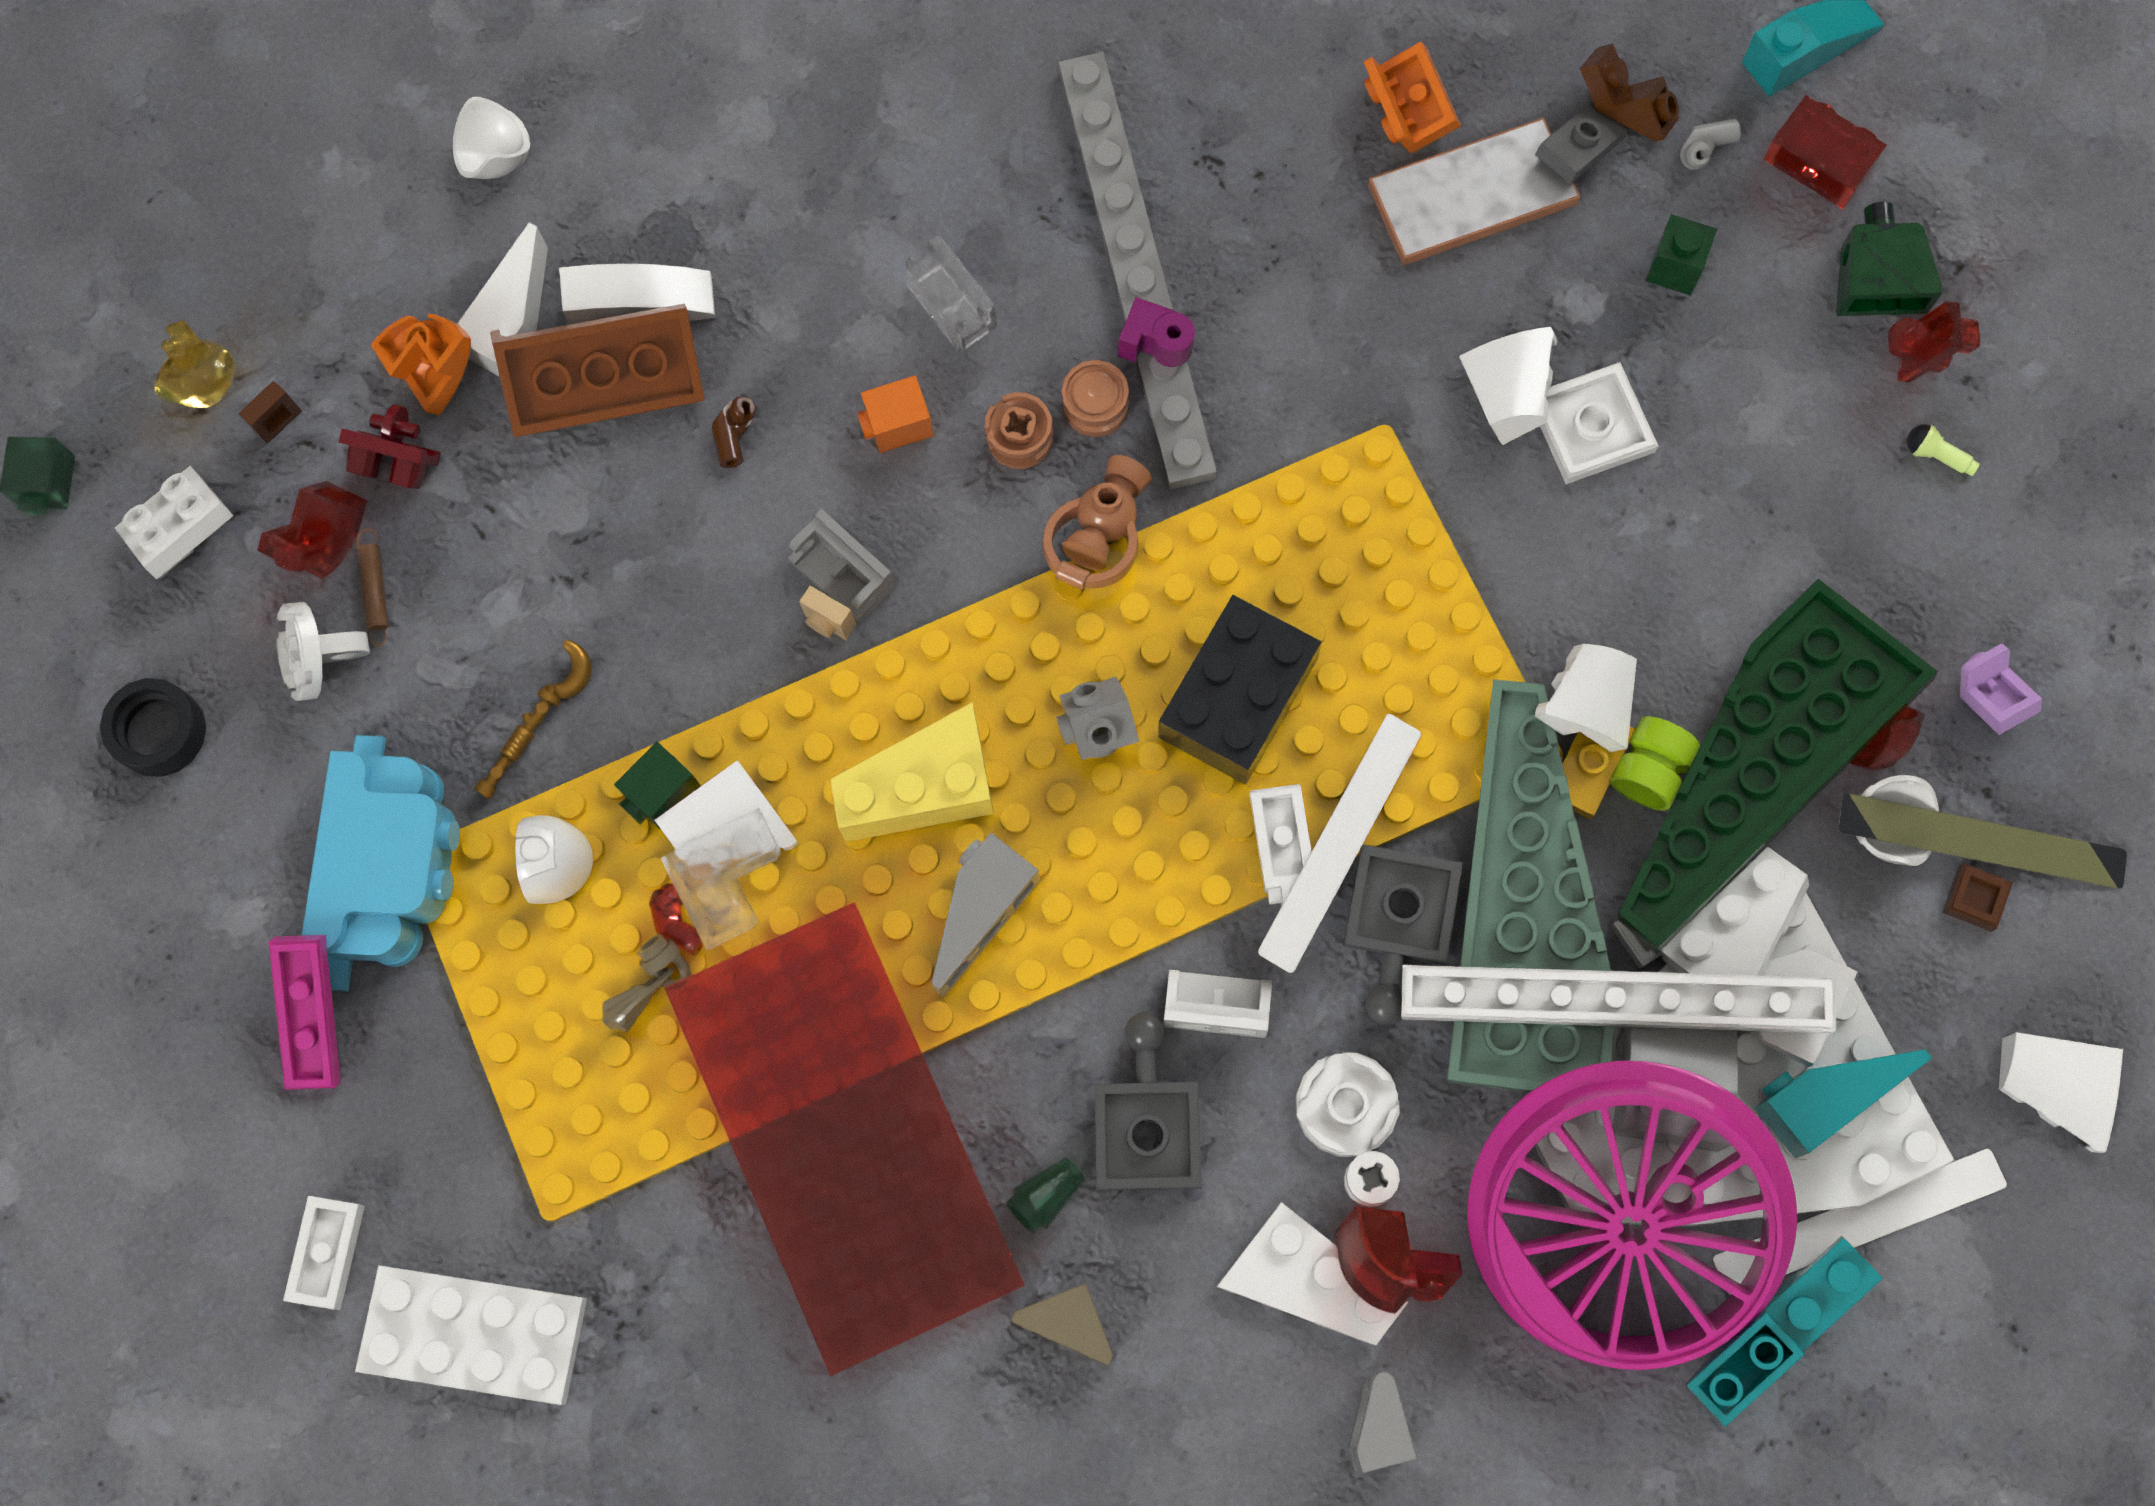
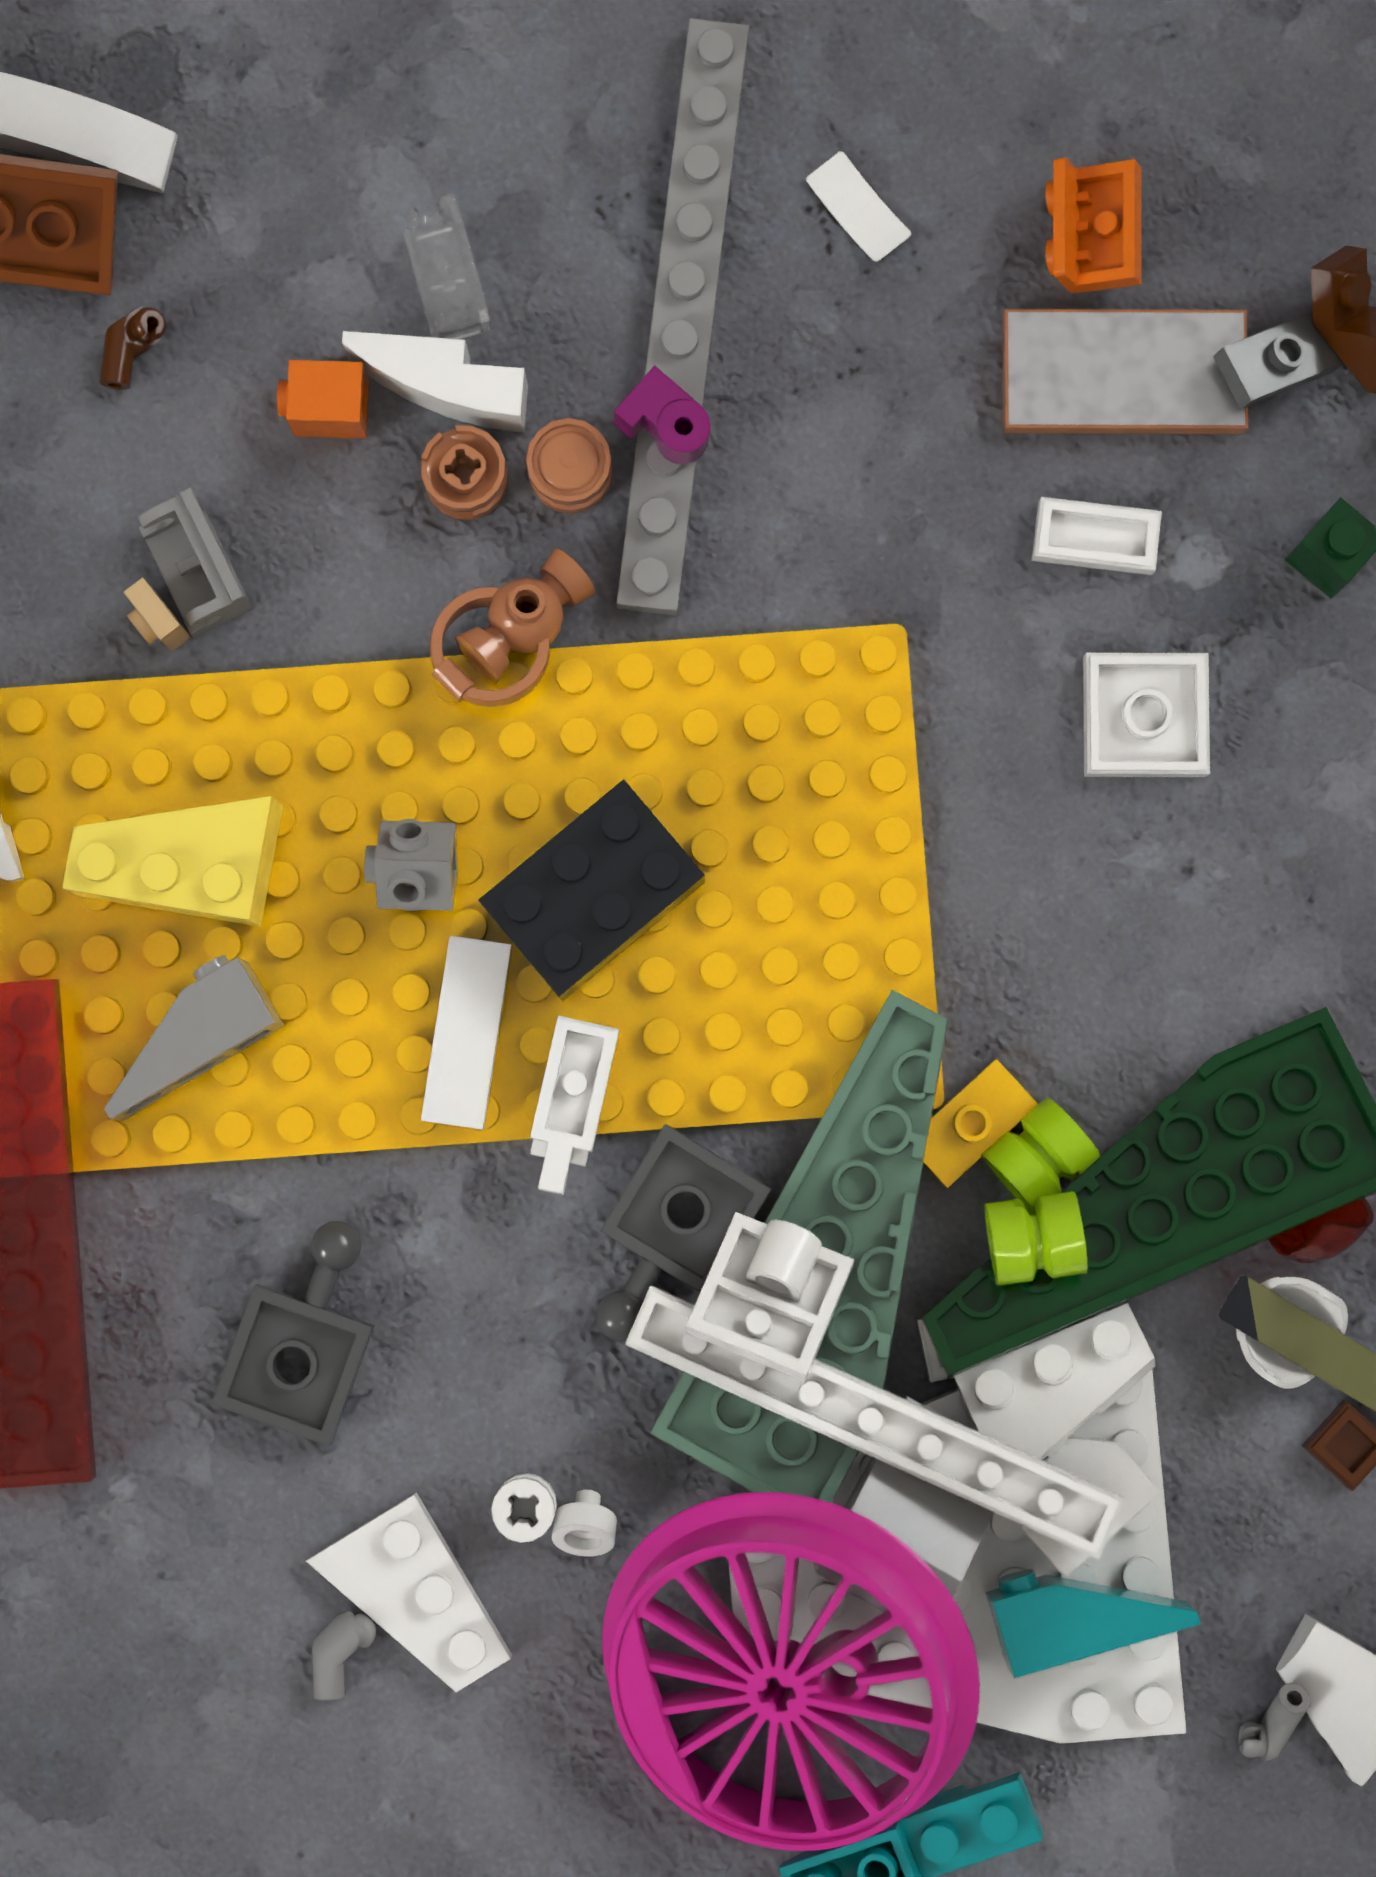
camera: 15 degrees right, 10 degrees up
(975, 371) = (441, 379): none -> white slope
(1044, 1195) = (153, 1387): clear green cone -> none
(1069, 1321) = (125, 1542): dark tan slope -> none
(1183, 832) = (466, 1032): none -> white tile
(1217, 1004) = (430, 1242): white hinge -> none
(1231, 149) = (857, 207): none -> white sticker
(1265, 1347) = (334, 1647): none -> light grey arm
(1339, 844) = (637, 1115): white sticker -> none
(1347, 1104) = (533, 1411): white tile -> none
(1380, 1427) = (415, 1797): light grey tile -> none
(1382, 1265) = (492, 1614): clear red brick -> none
(1425, 1176) = (584, 1526): none -> white tile
(1500, 930) = (770, 1294): none -> white plate
(1502, 311) = (1096, 536): none -> white tile
(1513, 380) = (1068, 629): white slope -> none
(1593, 696) = (1000, 1052): white slope -> none
(1687, 813) = (1036, 1238): none -> lime wheel
(1907, 1205) = (1162, 1758): white sticker -> none
(2020, 1126) = (1277, 1724): none -> light grey arm

